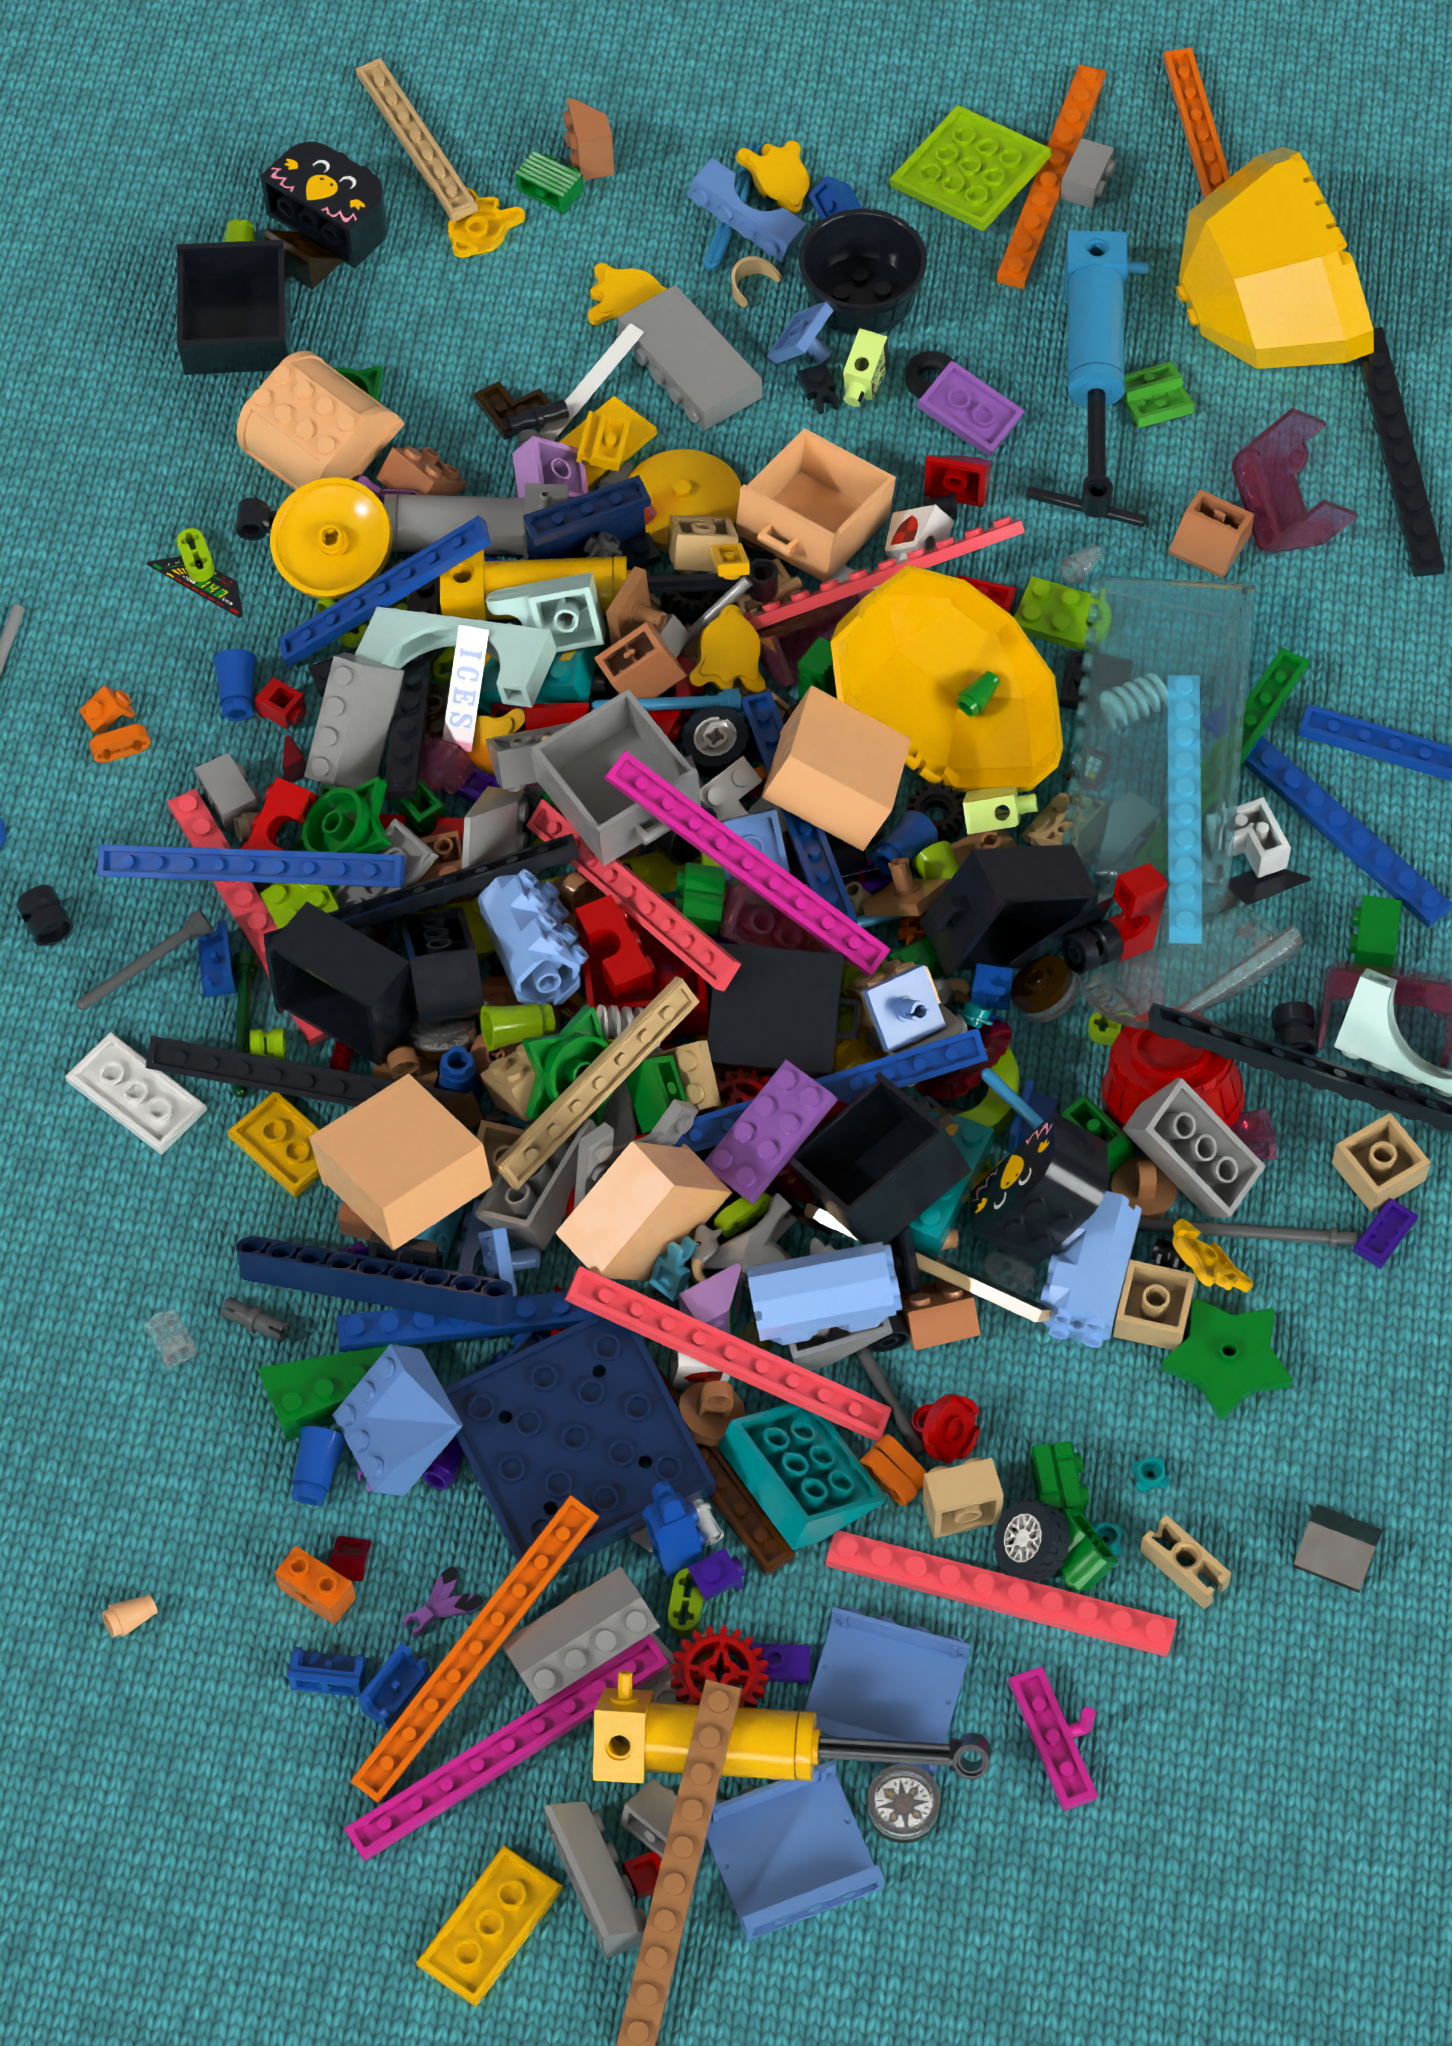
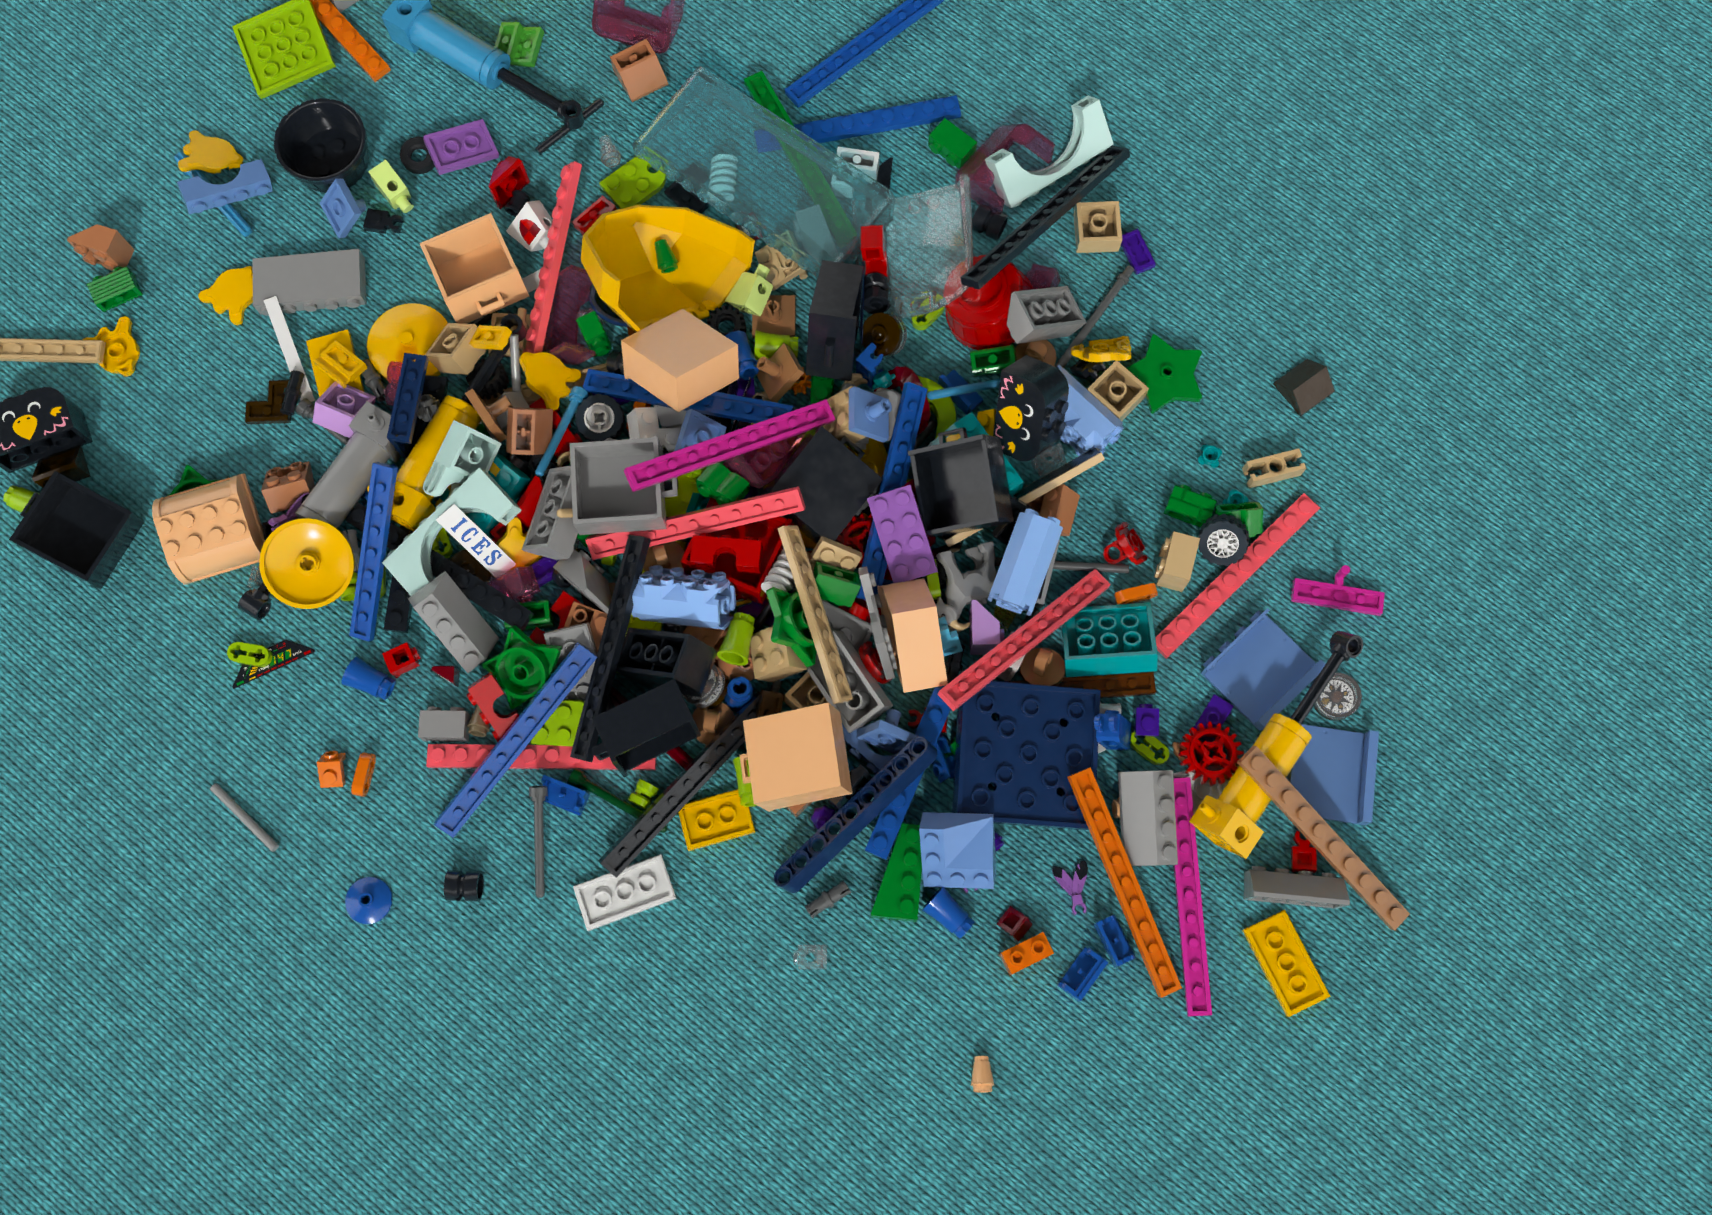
camera: 60 degrees left, 15 degrees up
(650, 1815) = (1279, 835): light grey brick -> none
(749, 266) = (265, 209): tan helmet -> none
(832, 197) = (255, 136): blue panel -> none
(902, 1459) = (1130, 581): orange beam -> none
(1184, 810) = (832, 188): medium azure plate -> none

